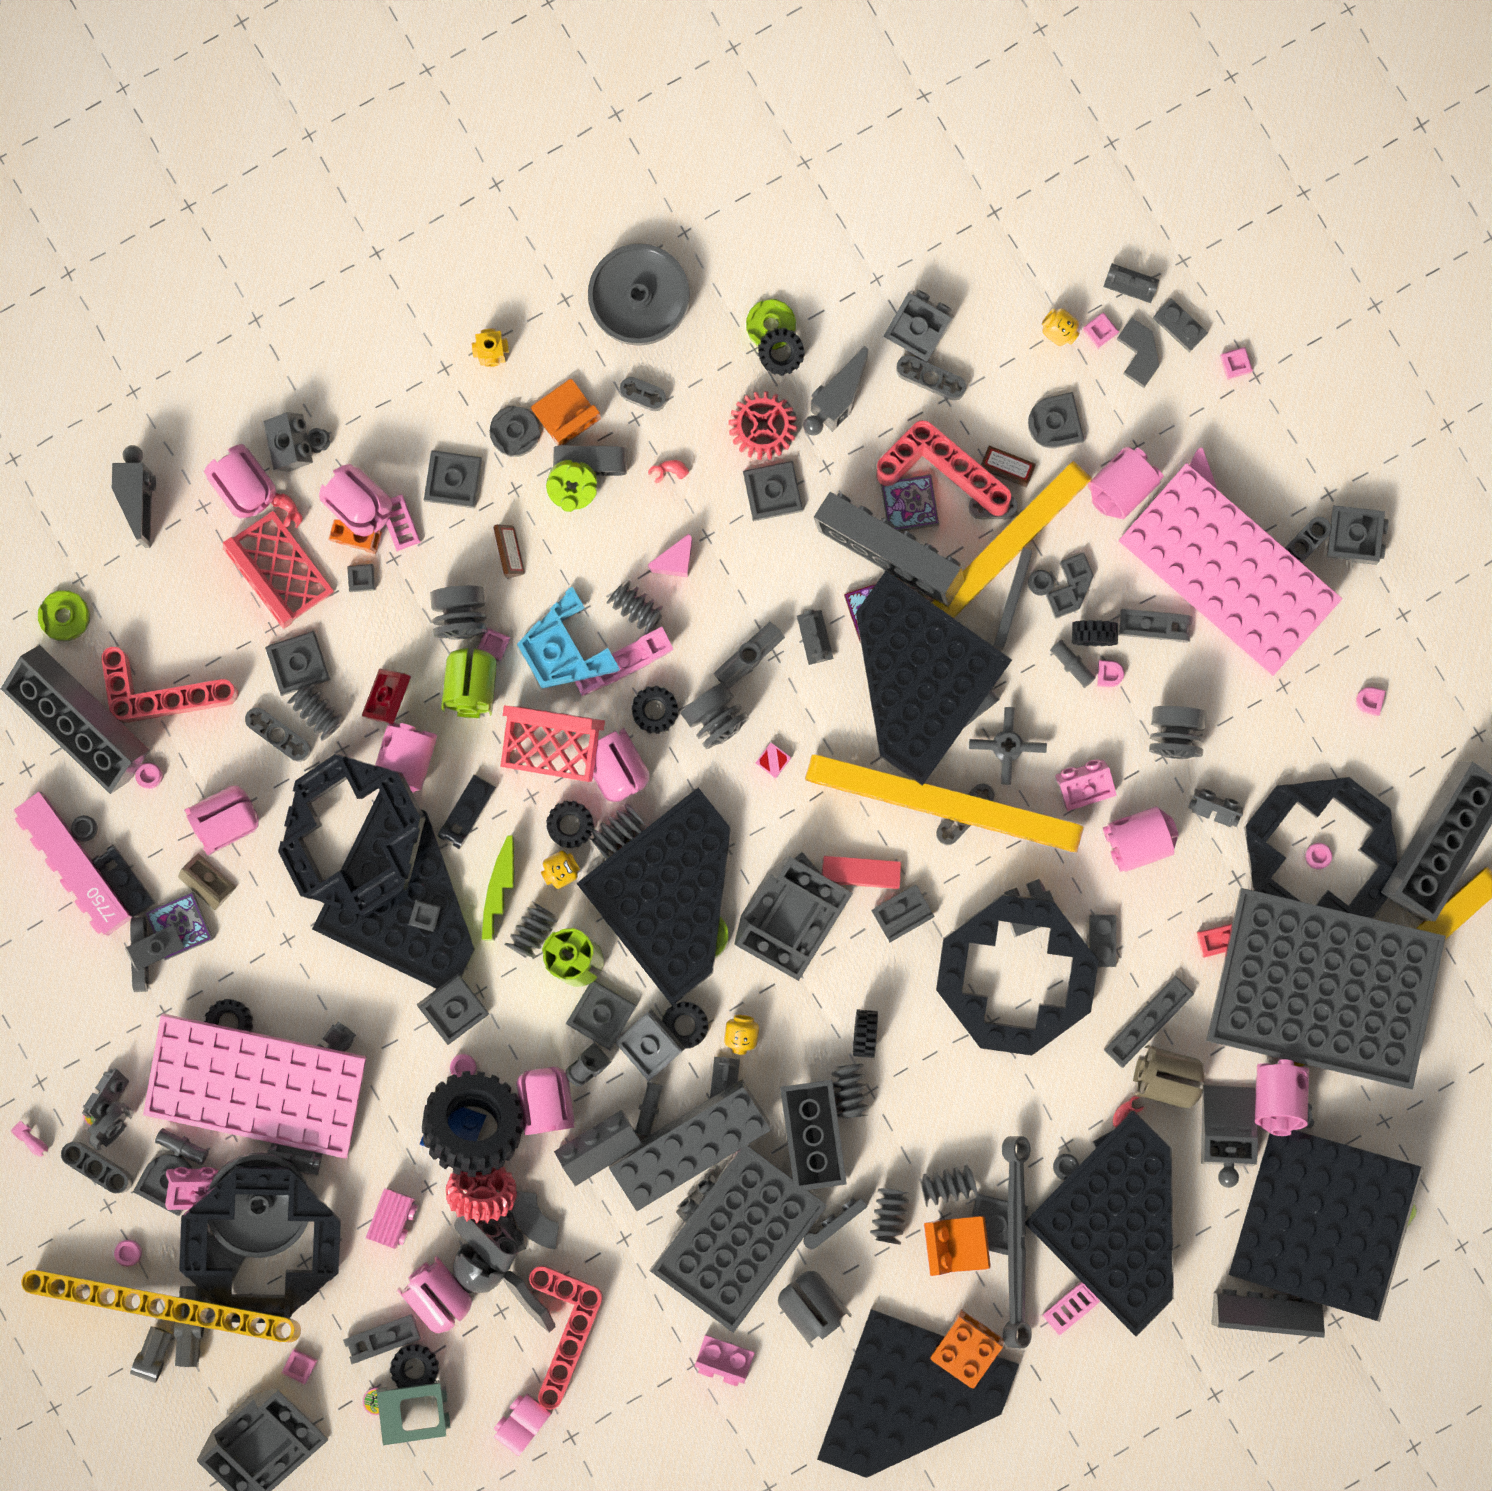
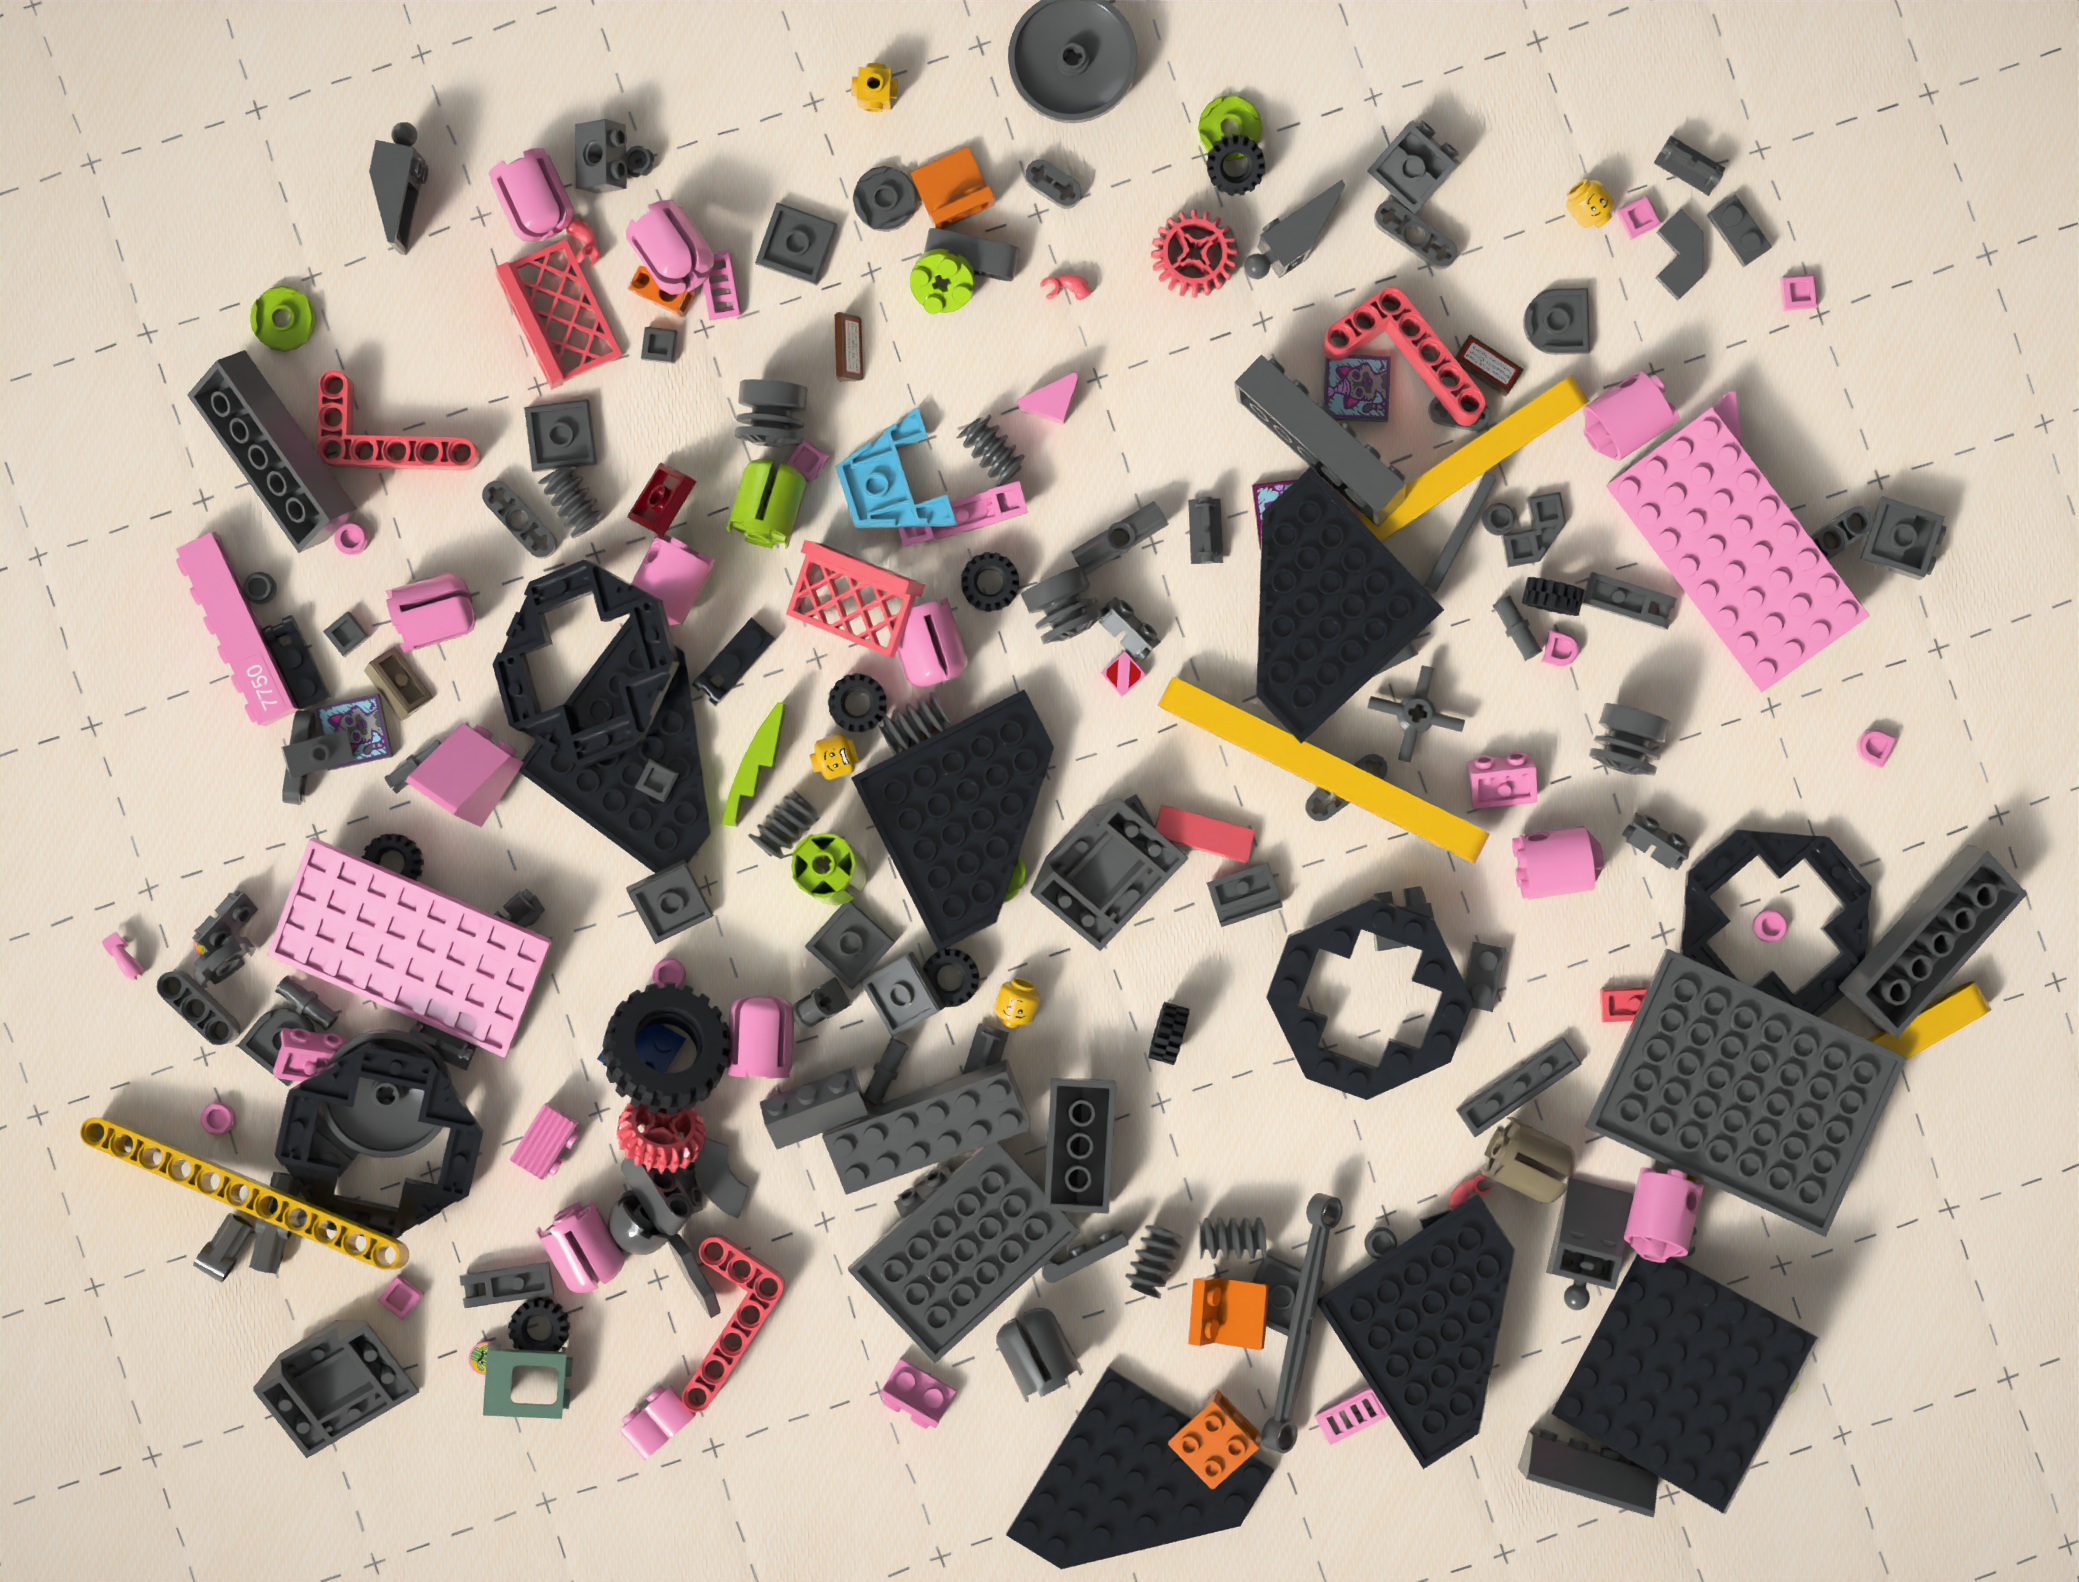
camera: 10 degrees right, 5 degrees up
(158, 850) = (346, 634): none -> dark grey tile
(233, 943) = (398, 777): none -> dark grey pin
(275, 939) = (467, 773): none -> bright pink slope
(772, 491) = (1190, 338): dark grey tile -> none
(779, 728) = (1140, 636): none -> hinge
(849, 1091) = (1136, 1099): dark grey piece -> none

